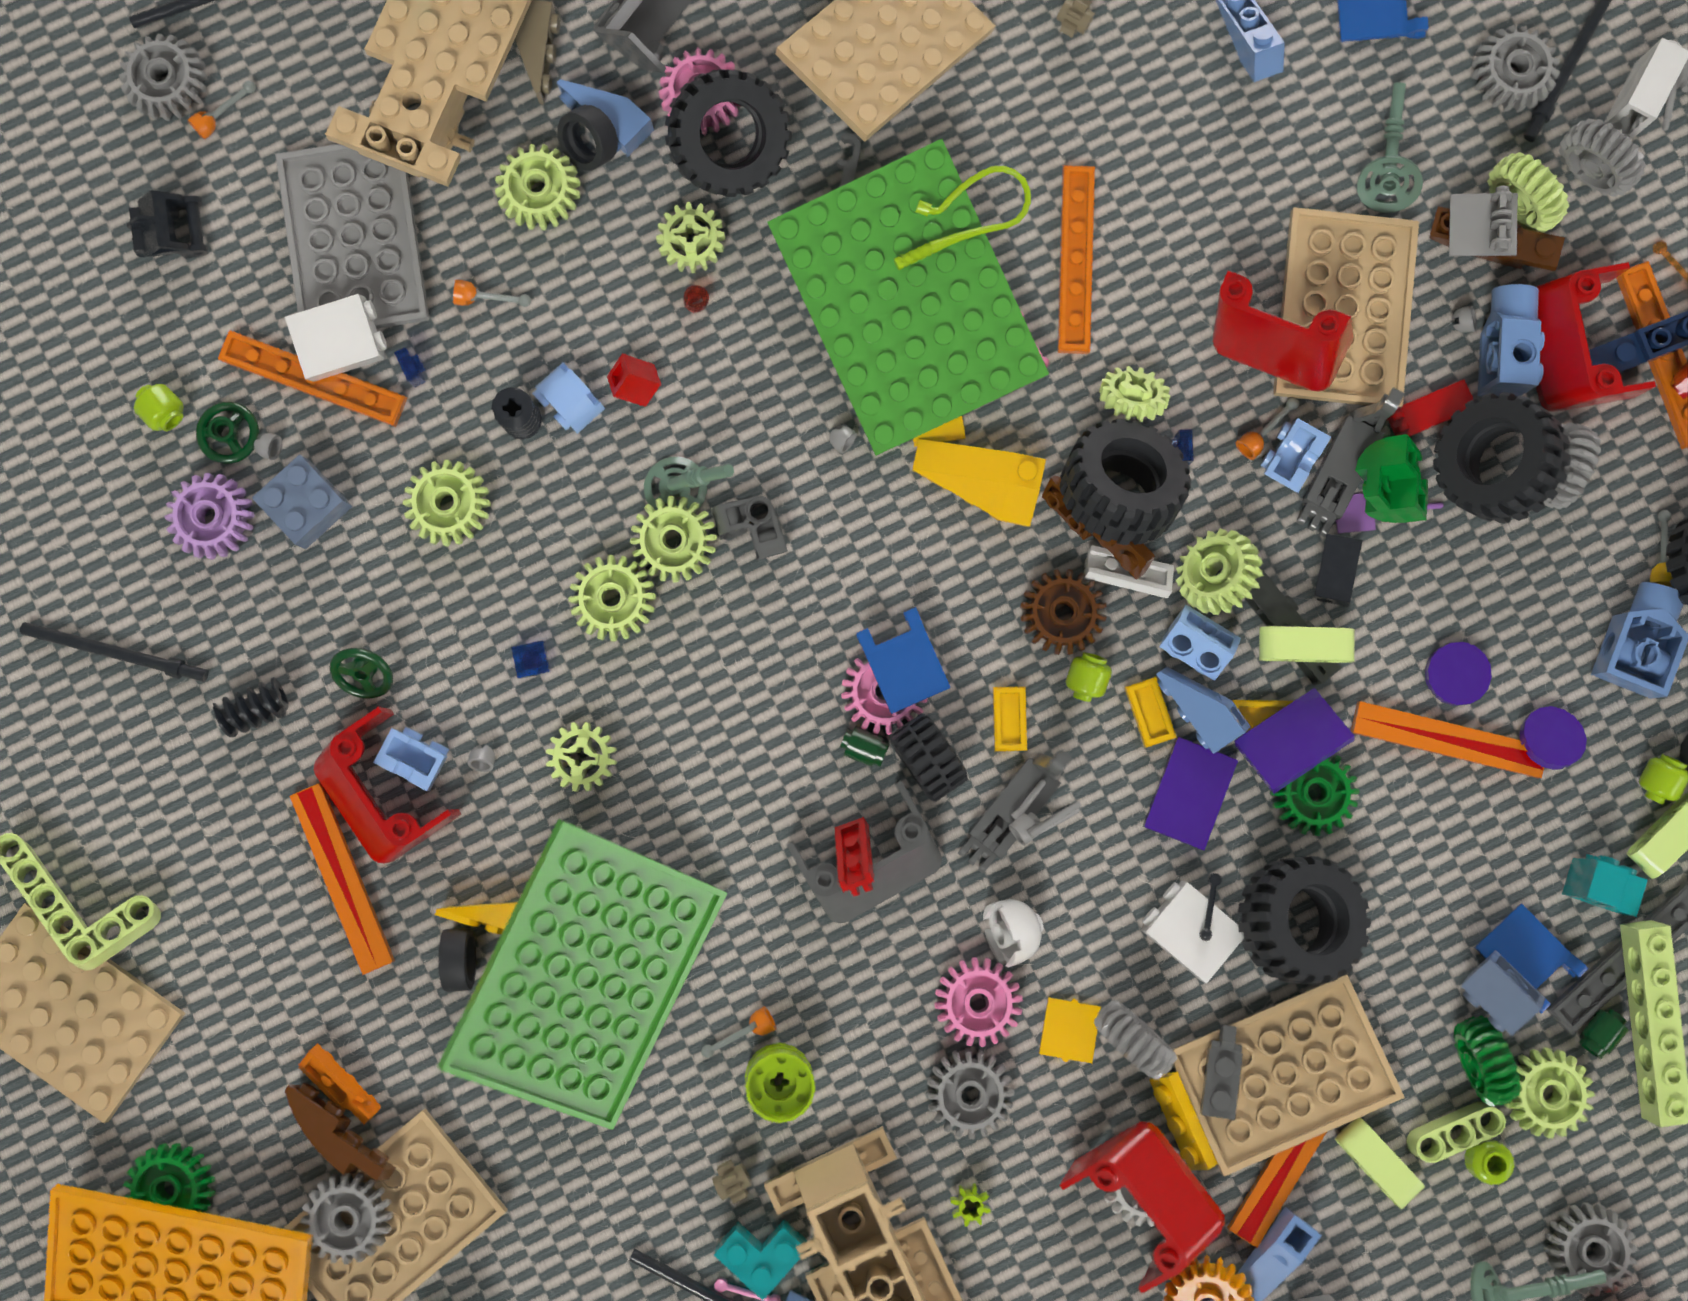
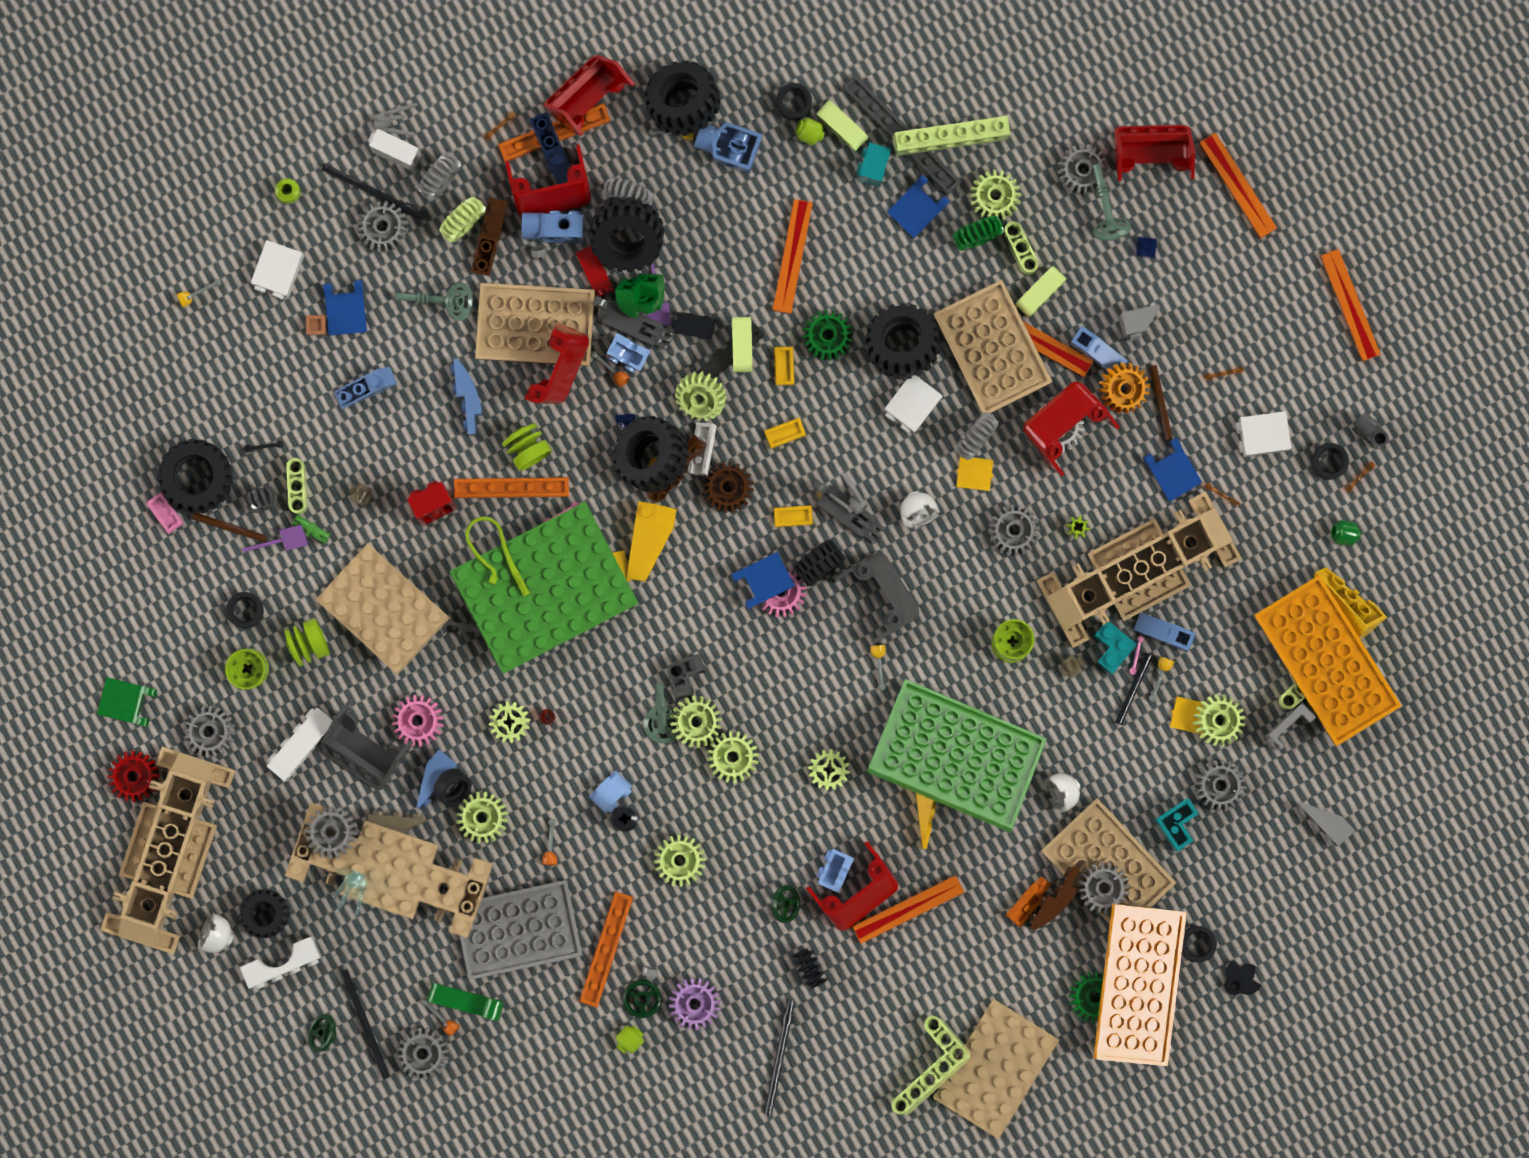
camera: 95 degrees left, 0 degrees up
(154, 225) = (520, 1049): black piece -> none
(240, 151) = (466, 1001): none -> green beam
(302, 502) = (683, 947): sand blue brick -> none
(336, 337) = (583, 931): white brick -> none
(411, 366) = (596, 887): clear blue plate -> none
(457, 959) = (952, 834): black tyre -> none
(481, 758) = (833, 829): light grey hinge -> none
(518, 1155) = (1063, 790): none -> white cylinder
(531, 659) = (772, 804): clear blue plate -> none
(633, 380) = (599, 752): red panel -> none
(760, 1023) = (980, 656): hinge -> none
(769, 141) = (461, 681): black tyre -> none
(775, 850) = (878, 652): none -> hinge
(842, 438) = (628, 624): light grey hinge -> none
(854, 856) = (879, 603): red hinge -> none
(864, 746) = (814, 601): dark green brick -> none
(984, 1021) = (964, 516): bright pink gear -> none
(1057, 112) = (431, 502): none -> red brick
(1088, 676) = (766, 470): lime head -> none
(1136, 394) = (595, 450): yellowish green gear -> none
(1144, 281) = (527, 447): none -> lime wheel
(1183, 1122) = (1023, 406): yellow plate -> none
(1190, 793) = (832, 408): dark purple tile -> none
(1201, 638) = (742, 405): light blue brick -> none
(1209, 712) = (783, 399): medium blue slope -> none
(1214, 880) = (882, 393): black hinge -> none
(1222, 1075) = (995, 384): dark grey hinge -> none
(1240, 192) = (466, 390): none -> medium blue slope
(1294, 740) = (798, 349): dark purple tile -> none
(1458, 673) = (753, 252): dark purple tile -> none
(1483, 223) = (484, 246): light grey hinge -> none
(1489, 1162) = (1037, 223): lime head -> none
(1502, 993) = (938, 226): sand blue brick -> none
(1553, 738) = (788, 196): dark purple tile -> none
(1603, 1033) = (959, 164): dark green brick -> none

